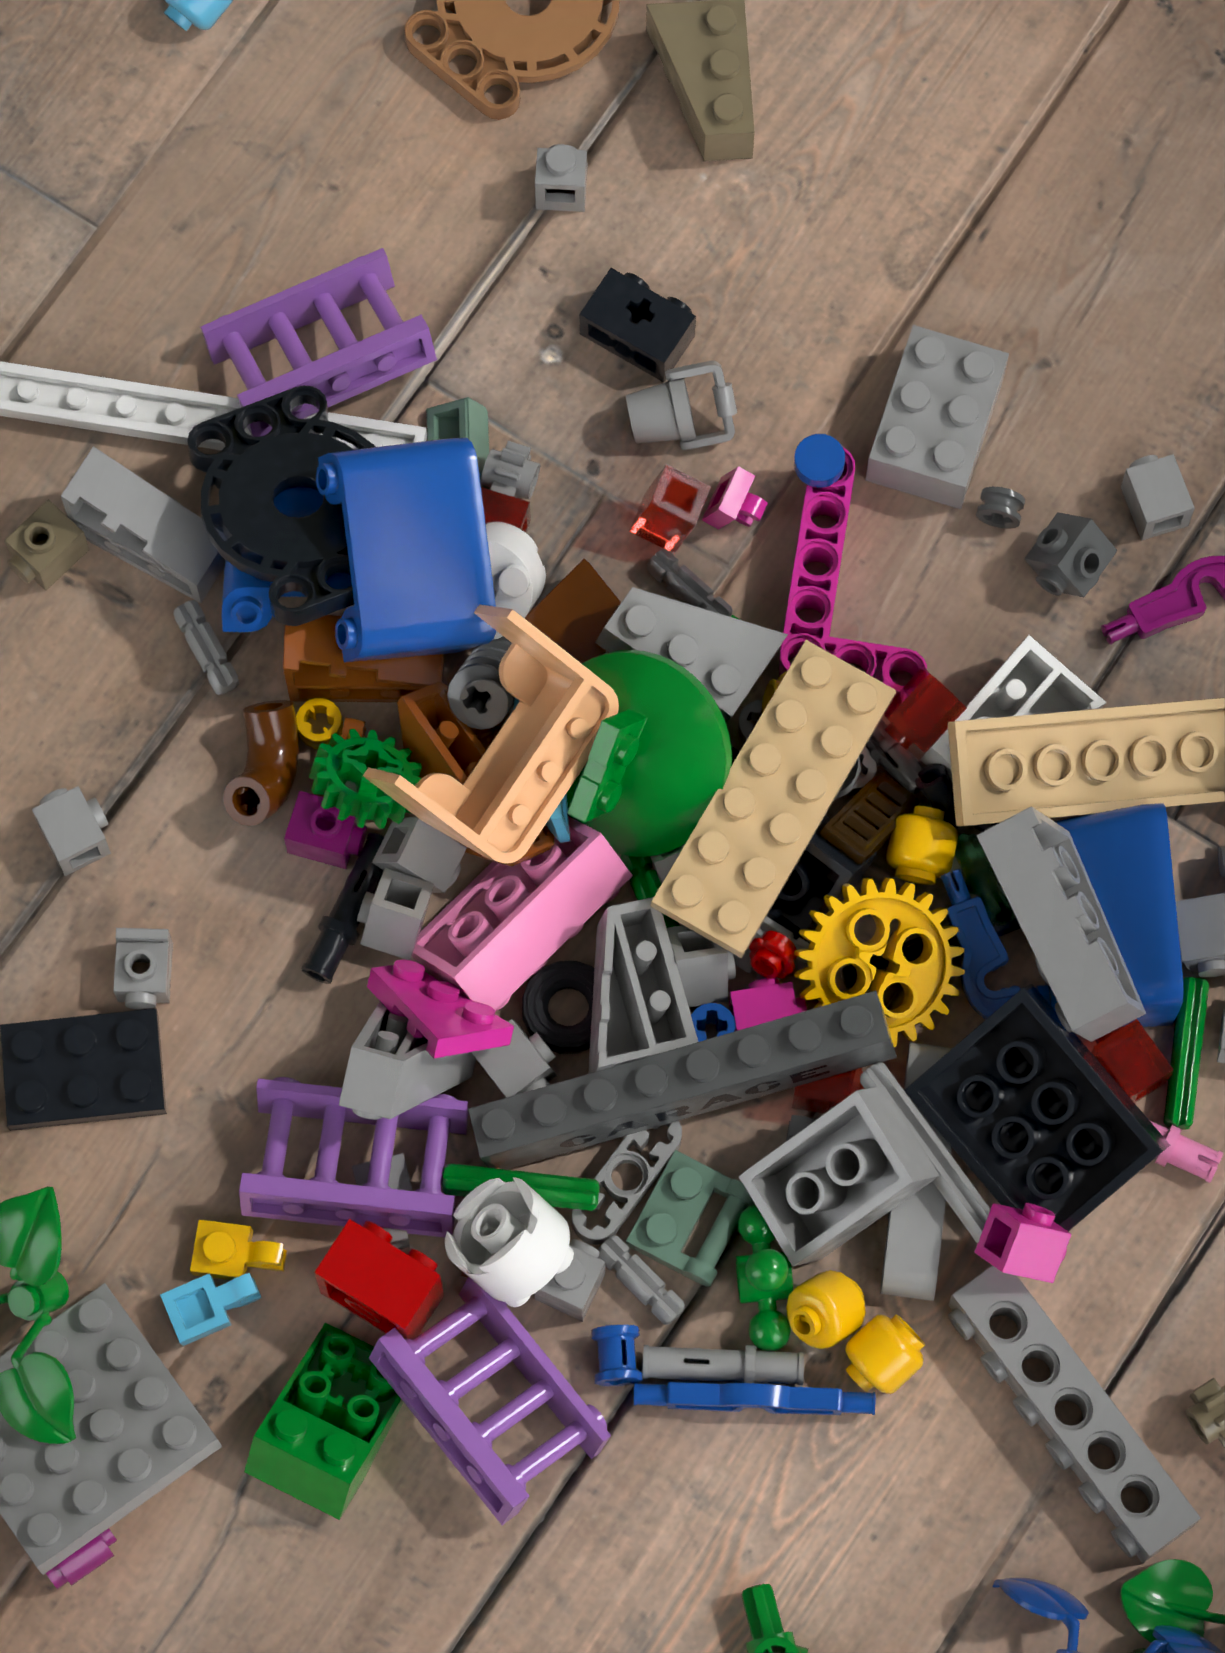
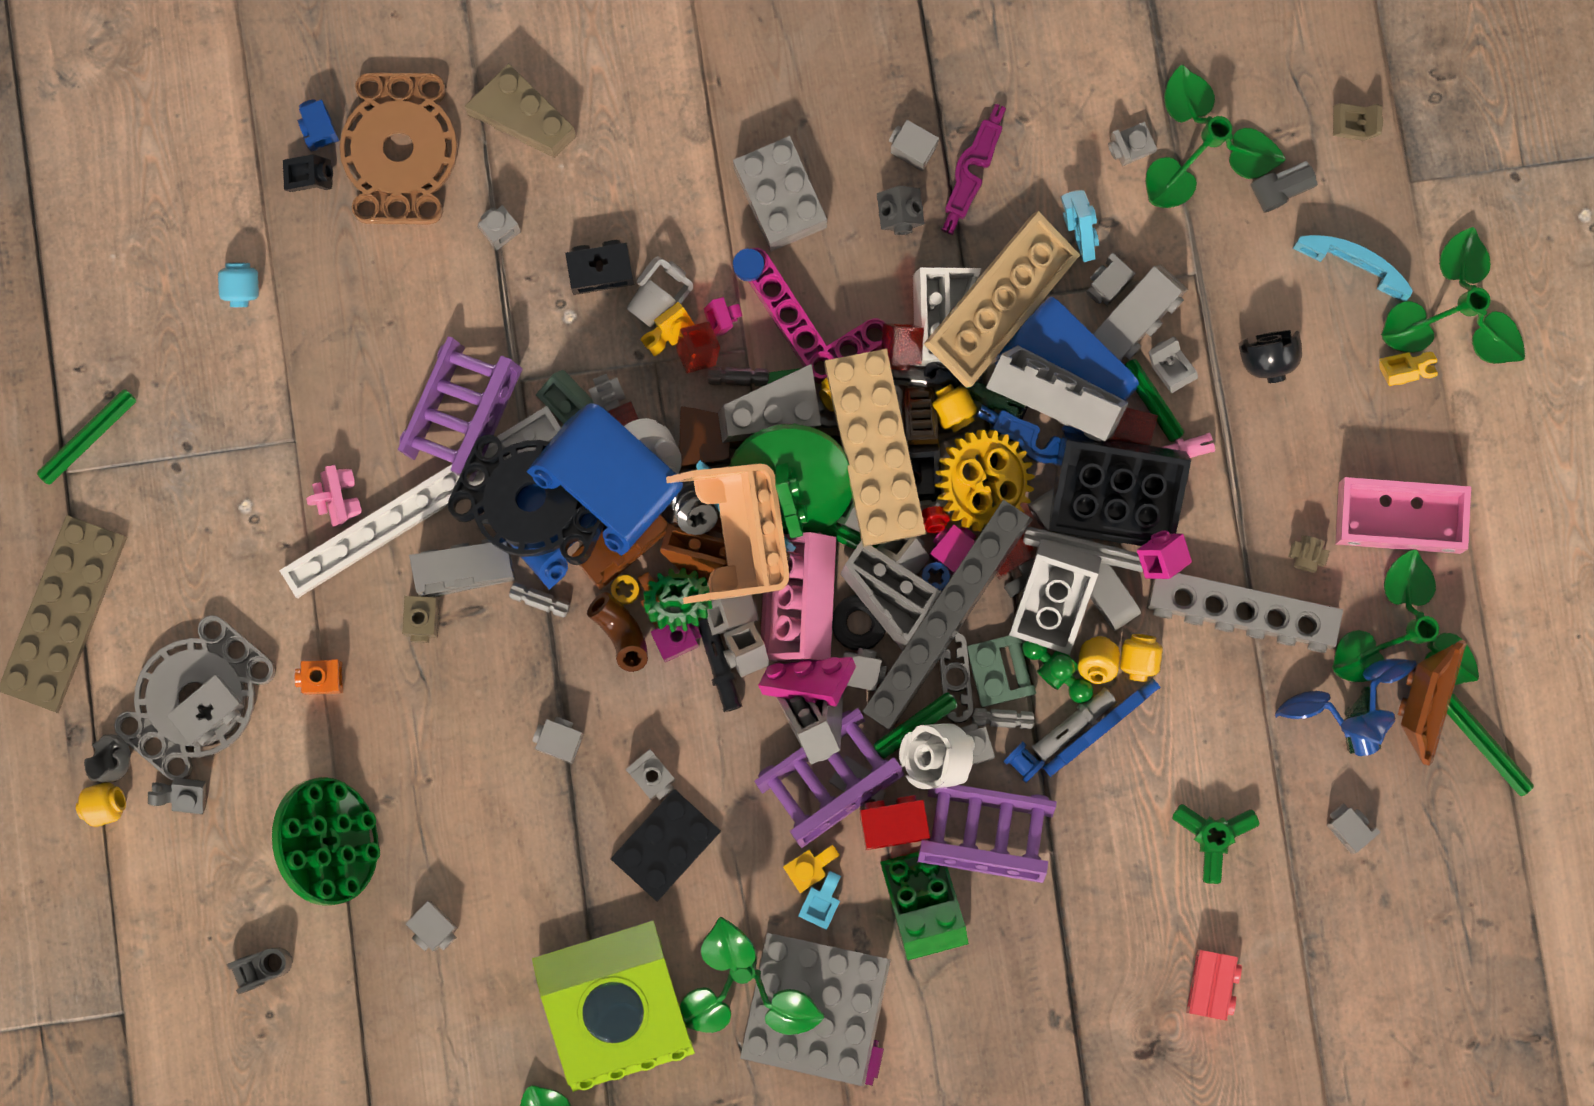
camera: 40 degrees left, 10 degrees up
(72, 343) = (333, 483): none -> bright pink hips
(659, 450) = (668, 329): none -> yellow plate
(1000, 507) = (847, 212): dark grey bush -> none

